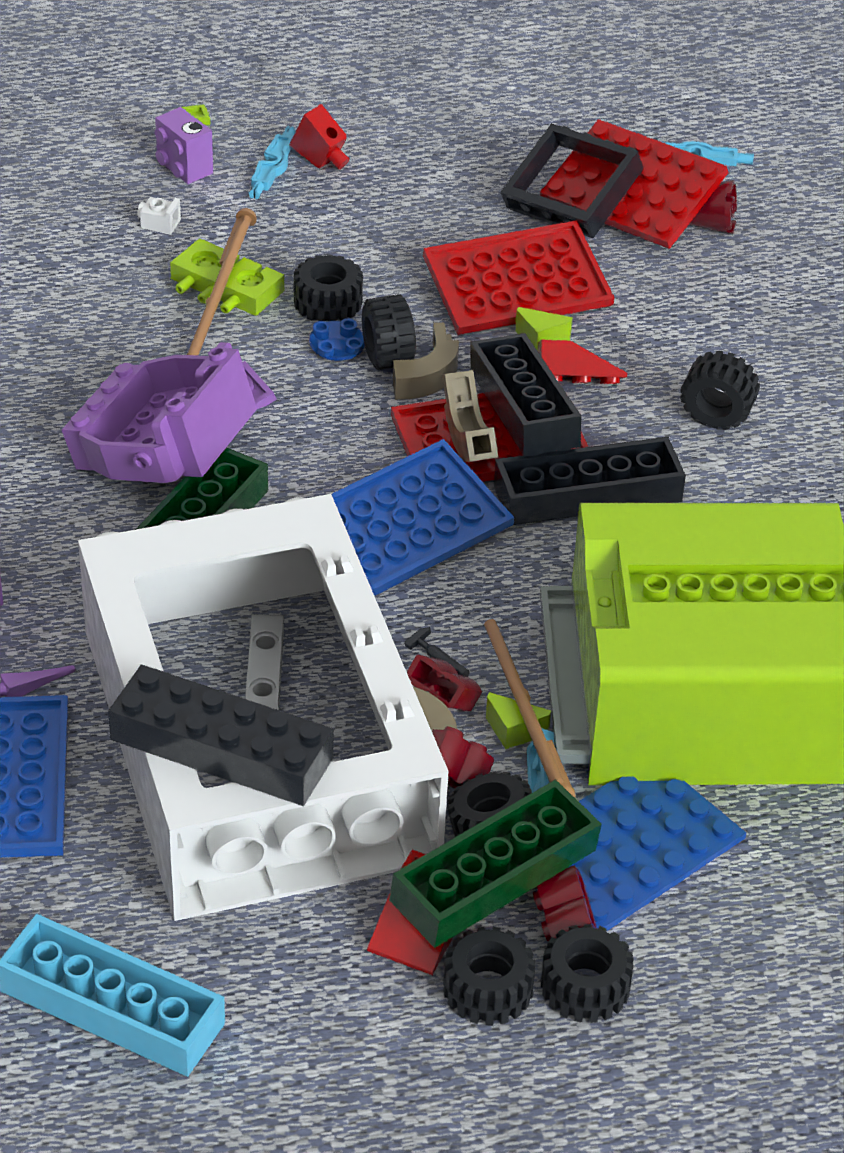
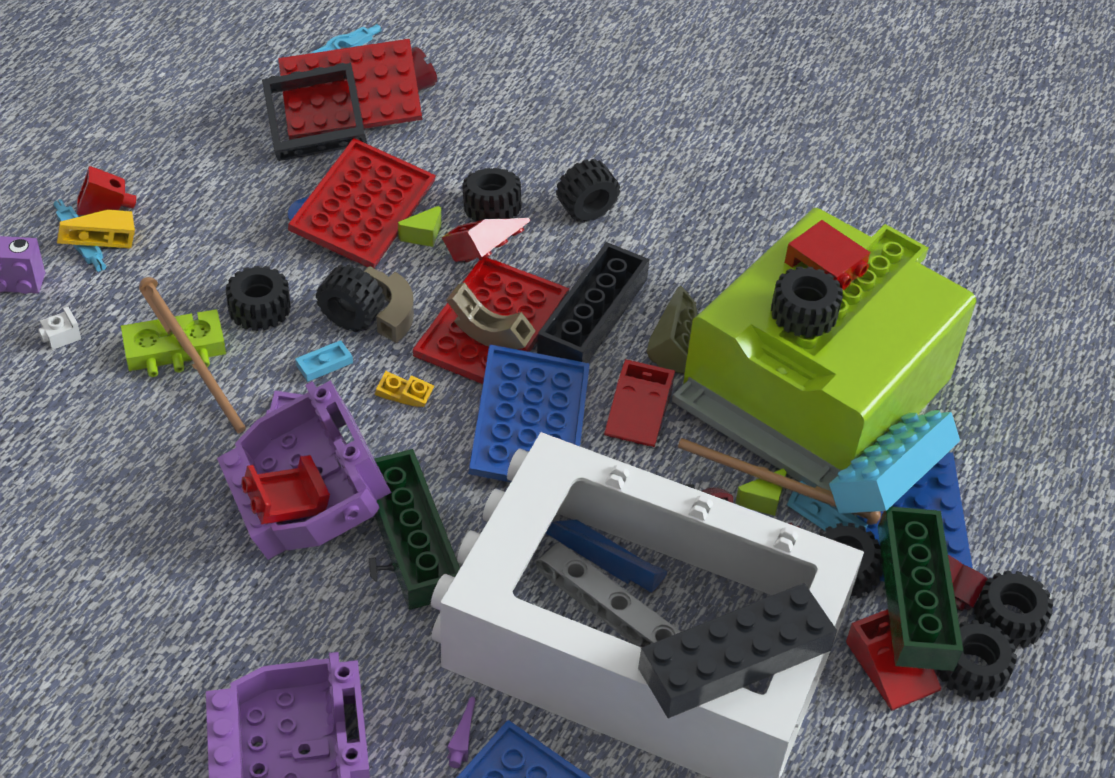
camera: 50 degrees left, 5 degrees up
(116, 413) = (286, 493): none -> red panel
(282, 162) = (101, 228): none -> yellow slope
(314, 368) = (324, 360): none -> medium azure plate
(318, 657) = (606, 554): none -> blue wedge
(337, 339) = (308, 330): blue dish -> none
(344, 432) = (409, 392): none -> yellow slope
(512, 576) = (640, 403): none -> red slope
(525, 395) = (500, 275): black brick -> none
(635, 341) = (492, 194): none -> black tyre
(636, 767) = (894, 462): none -> medium azure brick
(680, 550) = (806, 301): none -> black tyre
(766, 537) = (830, 251): none -> red panel

